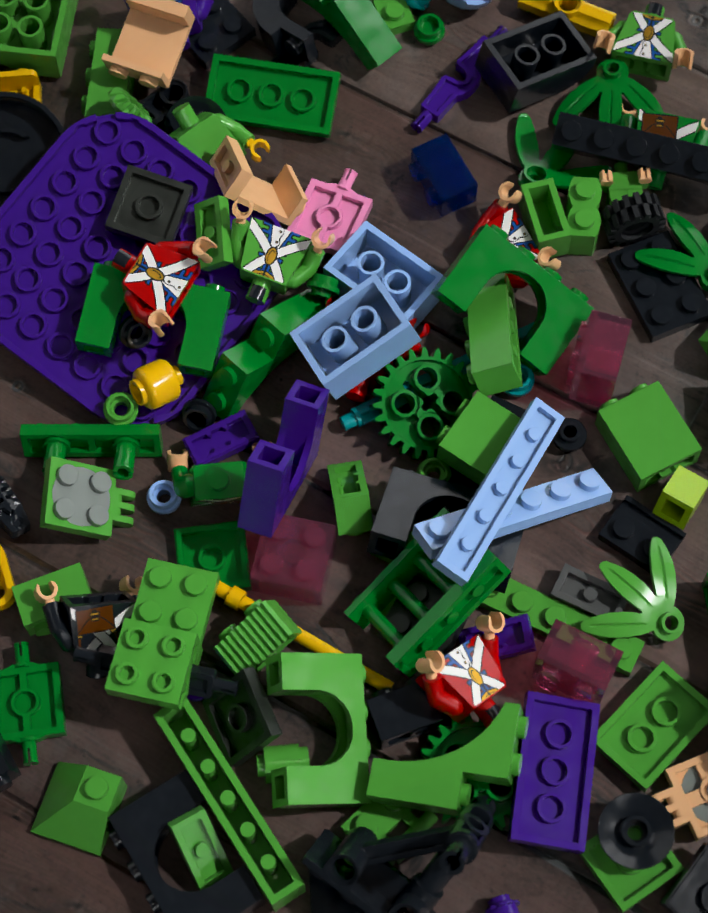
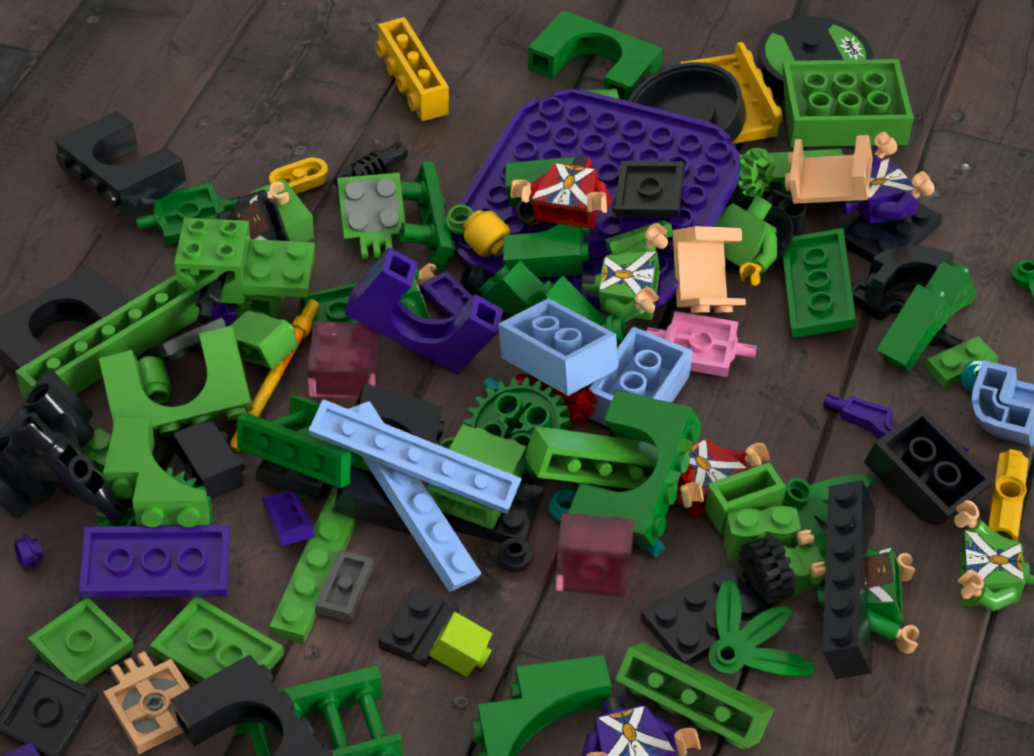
camera: 75 degrees right, 20 degrees down
(79, 807) = (109, 259): bright green slope -> none
(200, 847) = (70, 322): bright green plate -> none
(350, 498) = (416, 383): bright green arch -> none
(429, 29) = (943, 393): green plate -> none
(443, 175) = (772, 415): clear blue brick -> none
(467, 675) = (237, 479): torso -> none
(576, 664) = (262, 567): clear pink brick -> none
(611, 88) = (923, 538): green plant -> none
(644, 814) = (100, 616): black dish -> none
(647, 435) = (527, 613): bright green brick -> none
(652, 608) = (346, 612): bright green plant -> none

